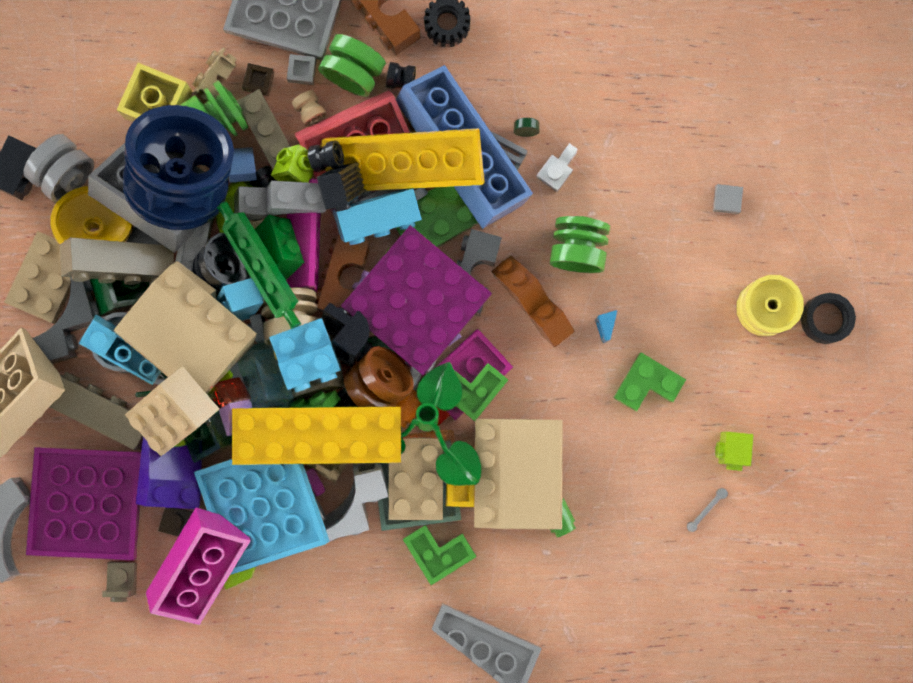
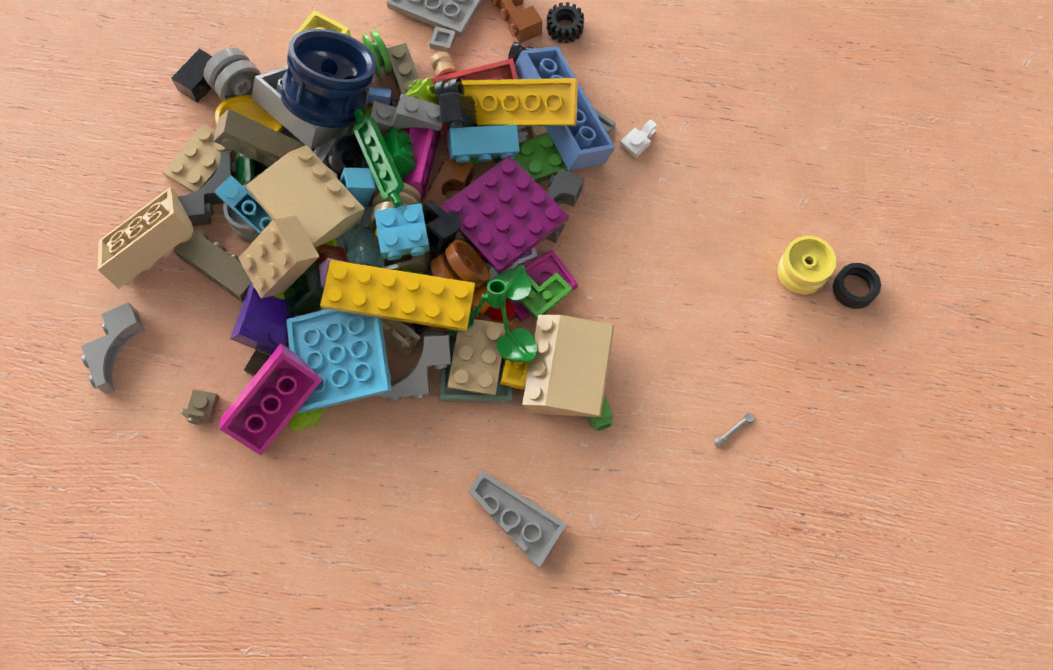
camera: 10 degrees right, 15 degrees down
(84, 504) = (185, 338): magenta plate -> none
(218, 65) = (376, 23): tan hinge -> none
(258, 78) = (410, 38): dark brown plate -> none
(316, 485) = (390, 350): magenta tile -> none
(352, 65) = (483, 37): bright green wheel -> none
(434, 560) = (485, 433): bright green plate -> none
(526, 127) = (617, 105): dark green tile -> none
(533, 300) = (600, 224): dark orange arch -> none
(580, 239) = (649, 192): bright green wheel -> none
(605, 325) = (662, 260): dark azure slope -> none
(645, 376) = (693, 309): bright green plate -> none
(728, 199) = (778, 182): light grey tile -> none
(734, 450) = (764, 379): lime brick -> none

